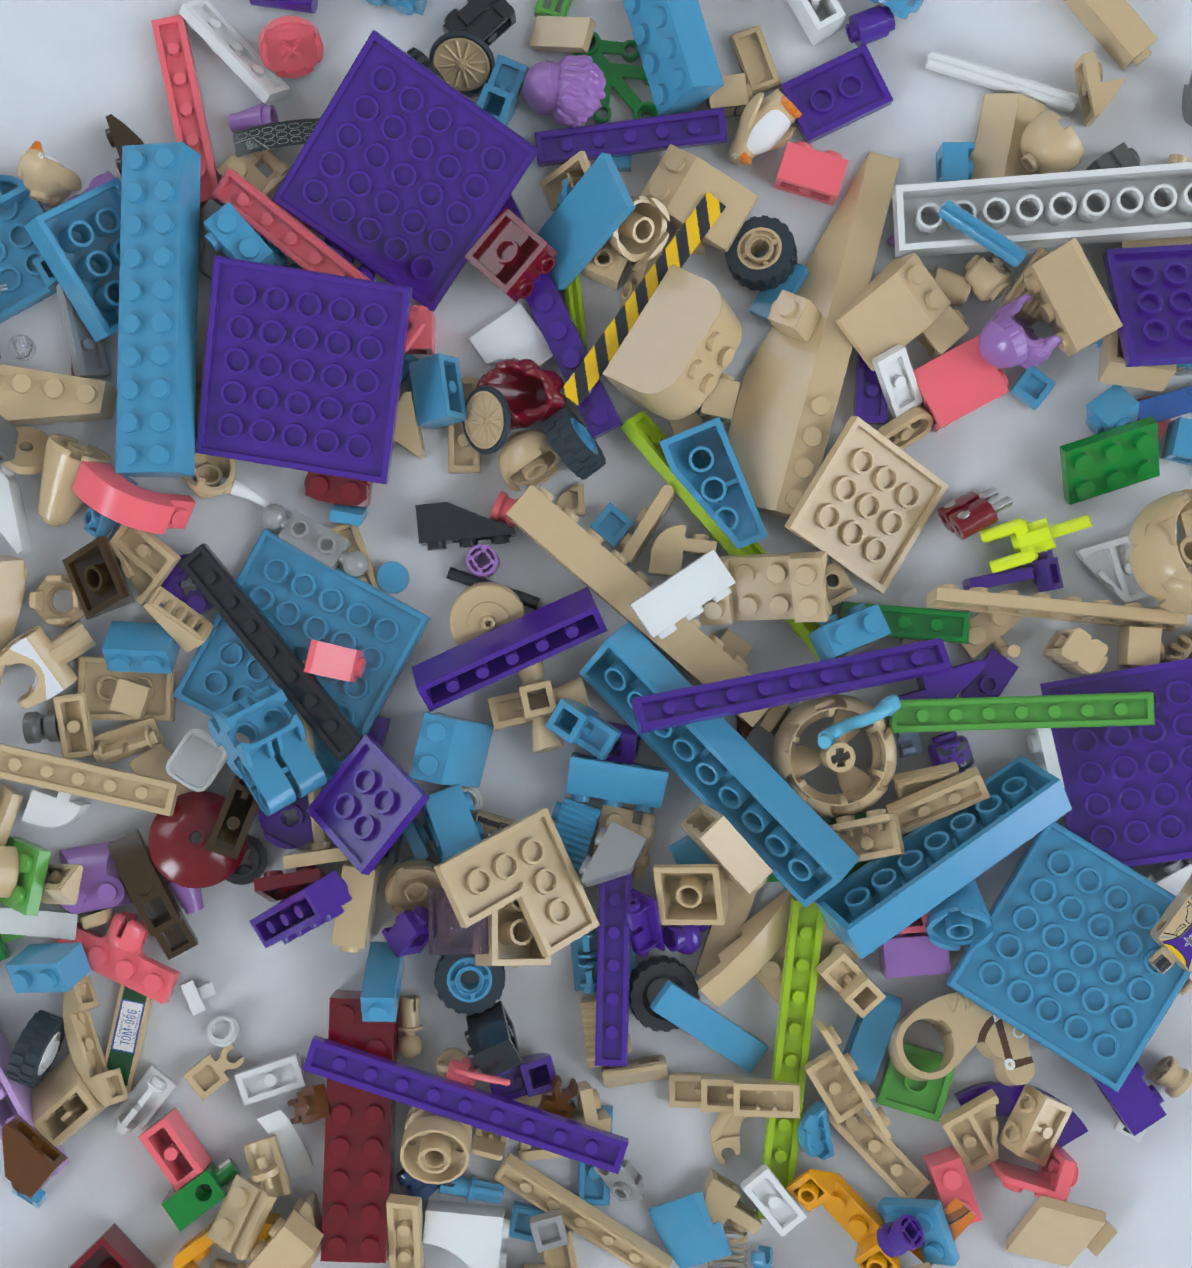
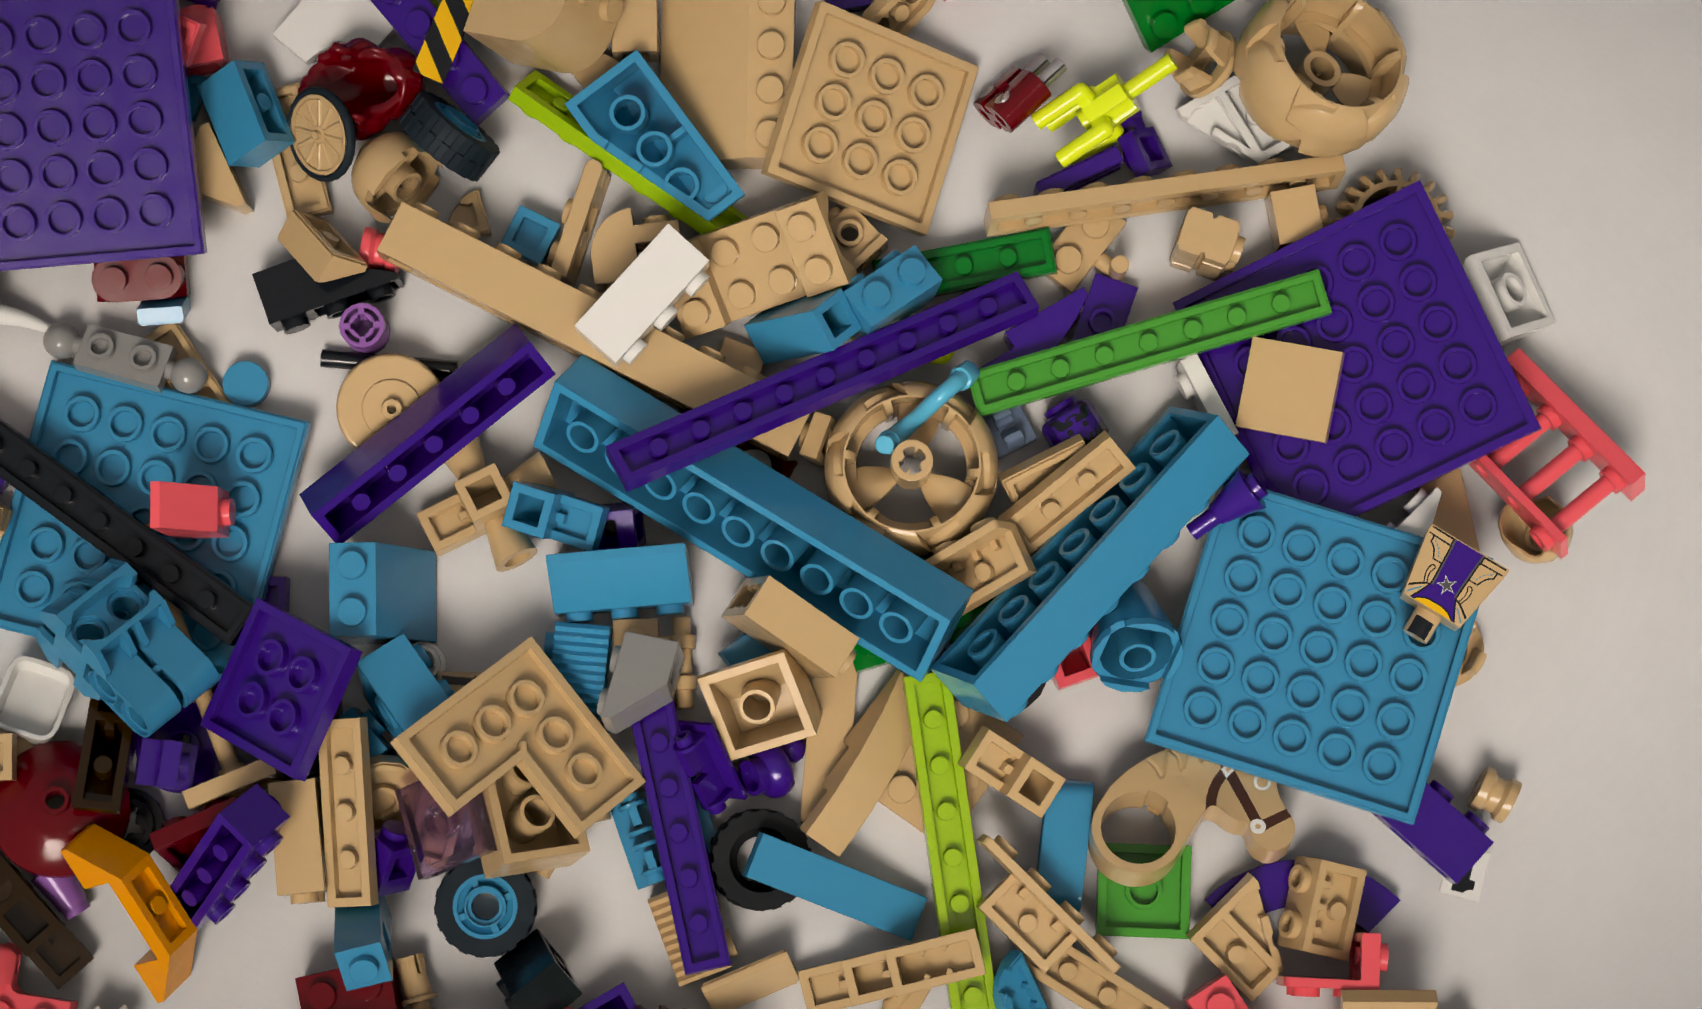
camera: 15 degrees left, 5 degrees down
(221, 889) = (105, 858): none -> light orange slope
(276, 831) = (165, 764): none -> dark purple brick
(392, 901) = (348, 814): none -> tan plate
(466, 499) = (319, 248): none -> tan slope
(786, 641) = (803, 327): none -> dark azure brick
(912, 956) = (1090, 716): medium lavender brick -> none
(1054, 838) = (1237, 499): none -> dark purple cone
(1109, 768) = (1290, 389): none -> tan tile
(1111, 511) = (1210, 47): none -> tan piece

